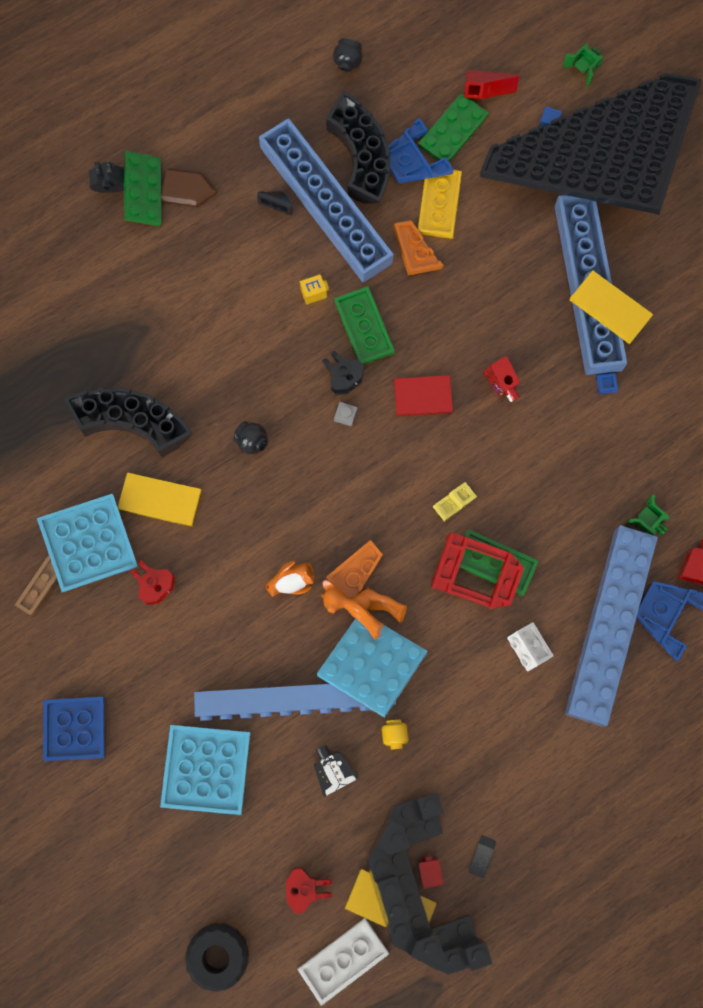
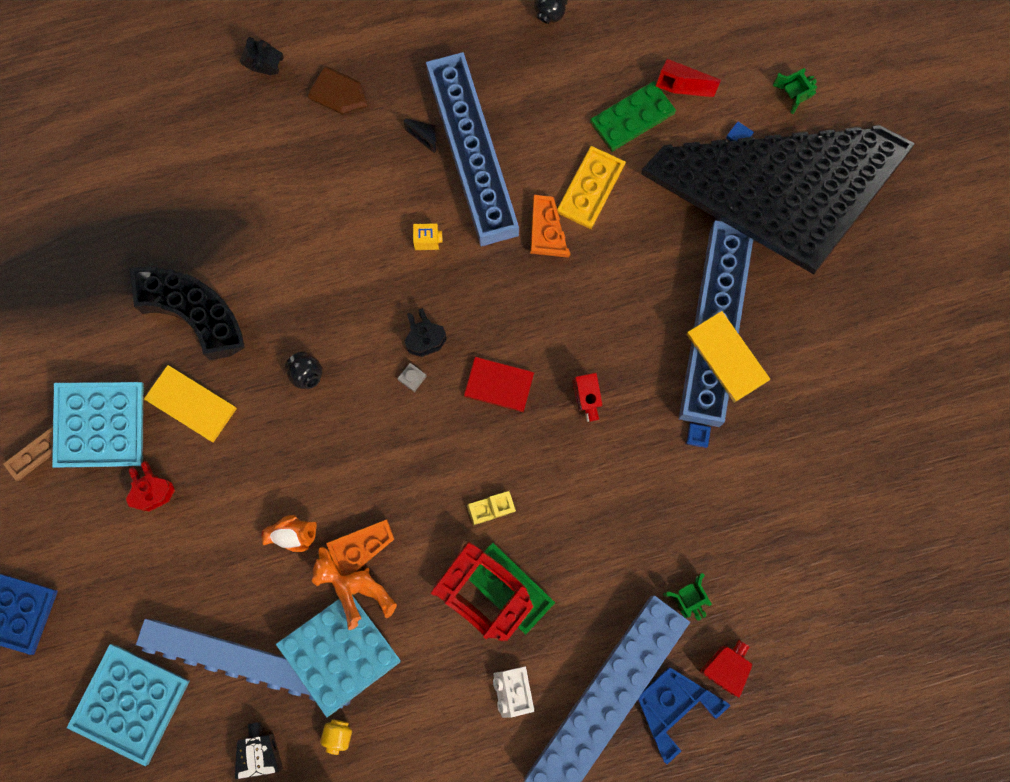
camera: 20 degrees right, 0 degrees up
(142, 188) = (292, 79): green plate -> none
(364, 326) = (464, 291): green plate -> none
(366, 146) = (536, 106): black brick -> none
(408, 162) = (571, 132): blue wing -> none

